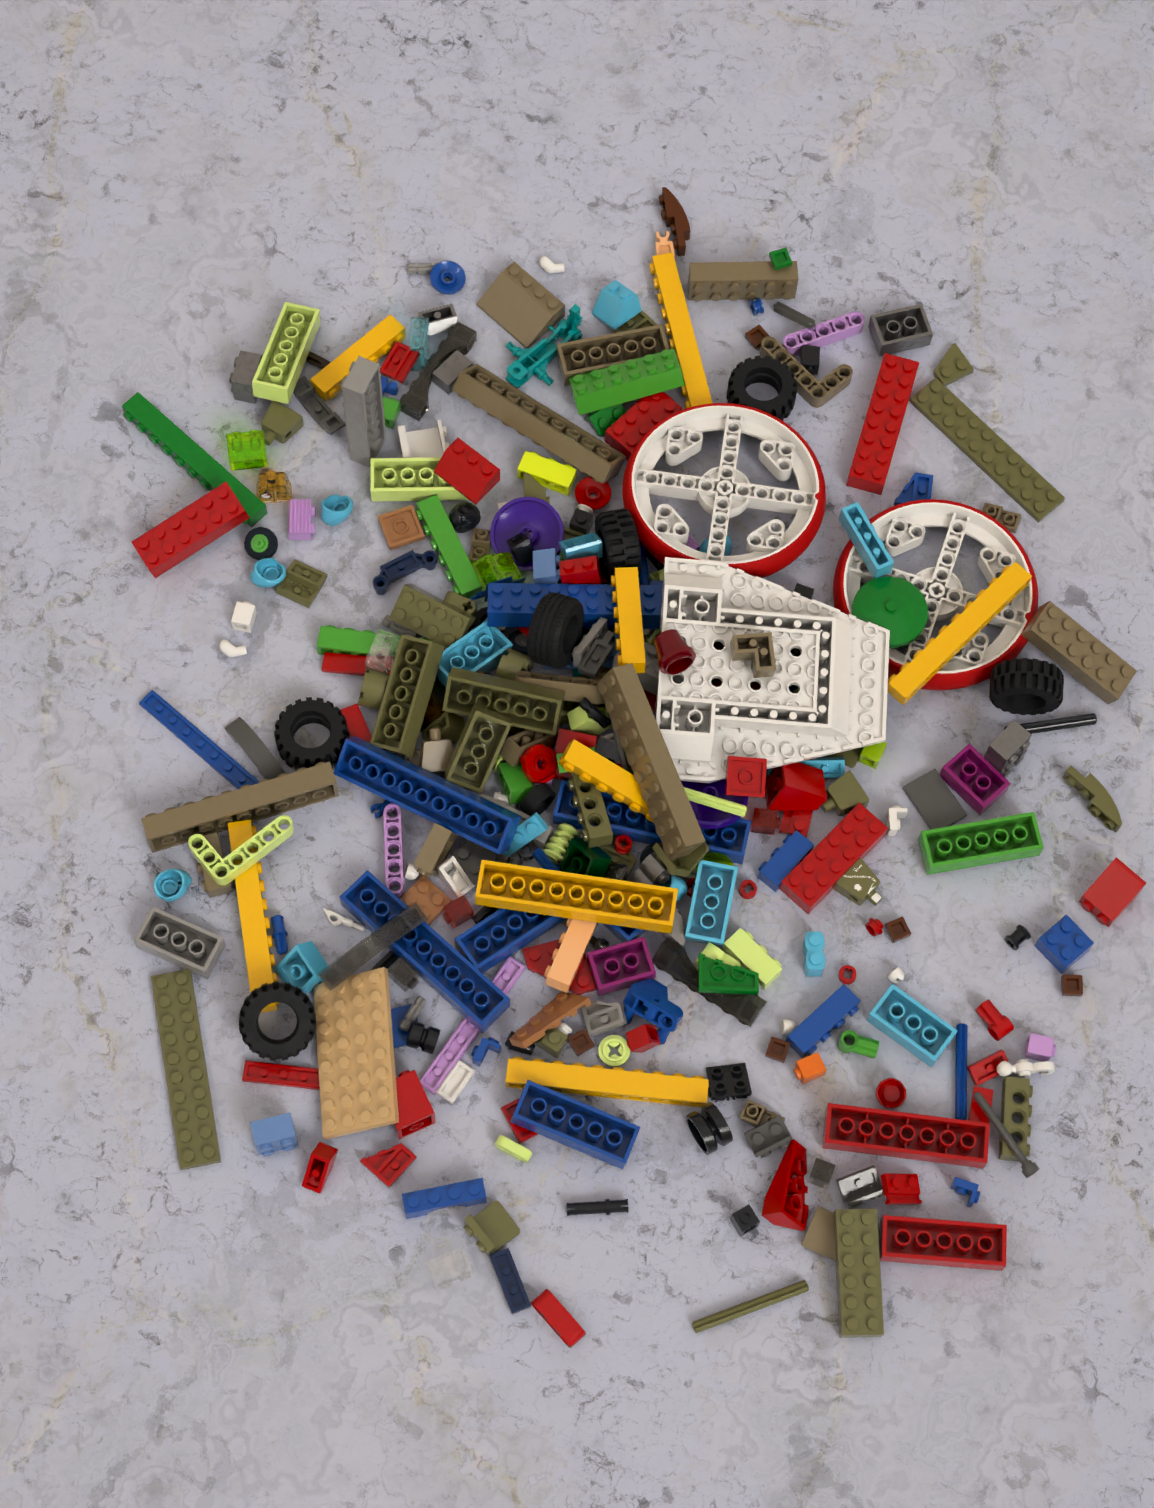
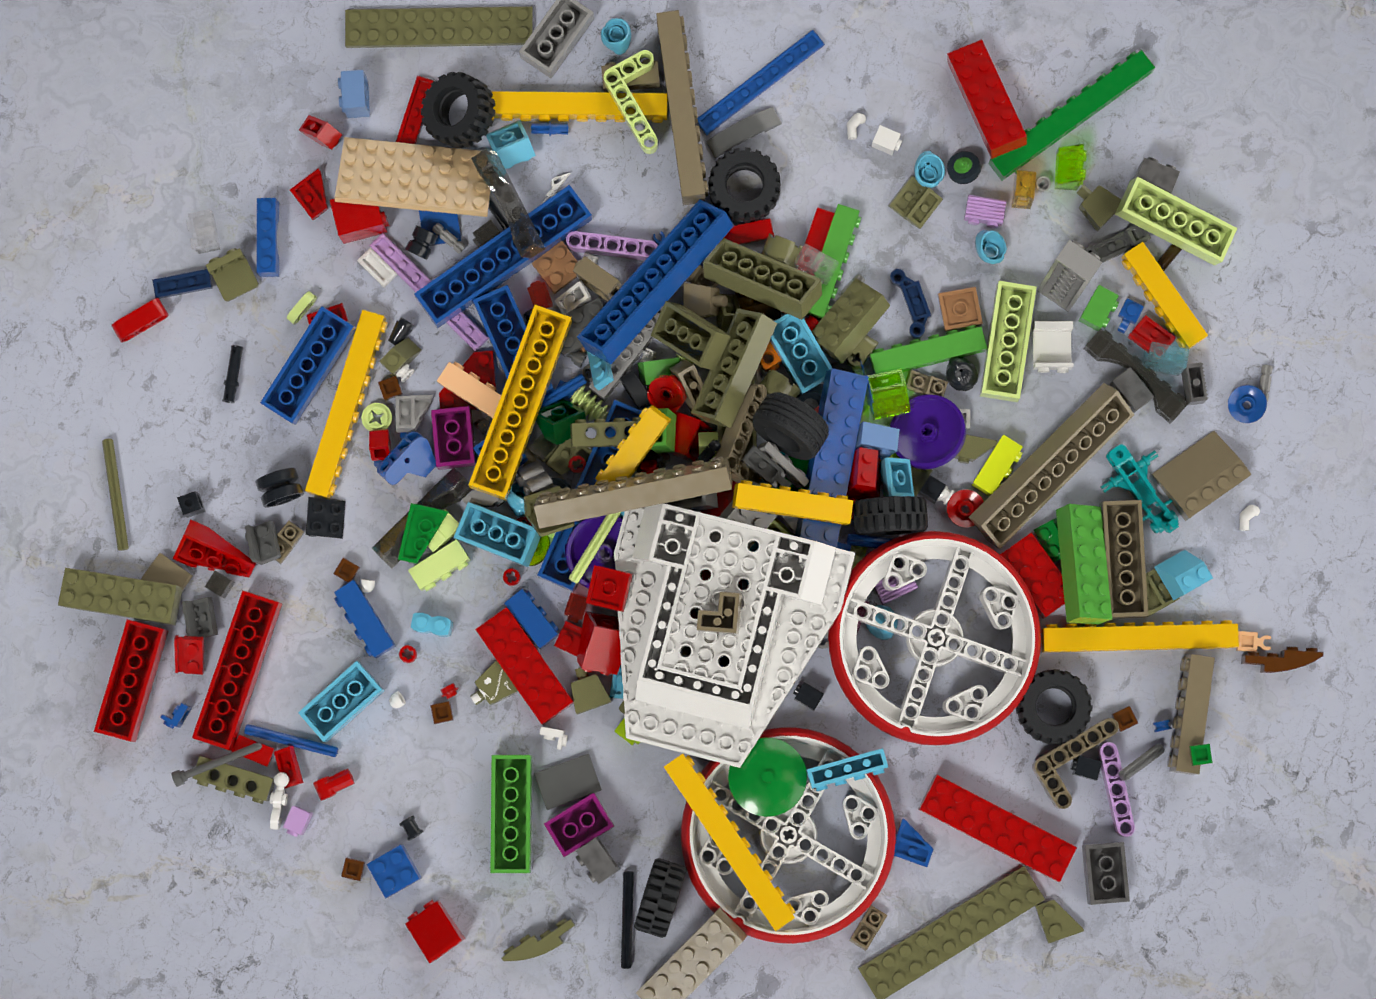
camera: 110 degrees right, 15 degrees up
(467, 471) = (1001, 379): red slope -> none
(479, 1052) = (399, 293): blue bracket -> none
(521, 548) = (909, 420): black brick -> none
(548, 1018) = (413, 358): medium nougat wing -> none
(673, 652) = (735, 532): dark red piece -> none
(809, 1068) = (321, 596): orange brick -> none
(860, 1044) = (334, 650): bright green piece -> none
(891, 1093) = (281, 666): red hair -> none

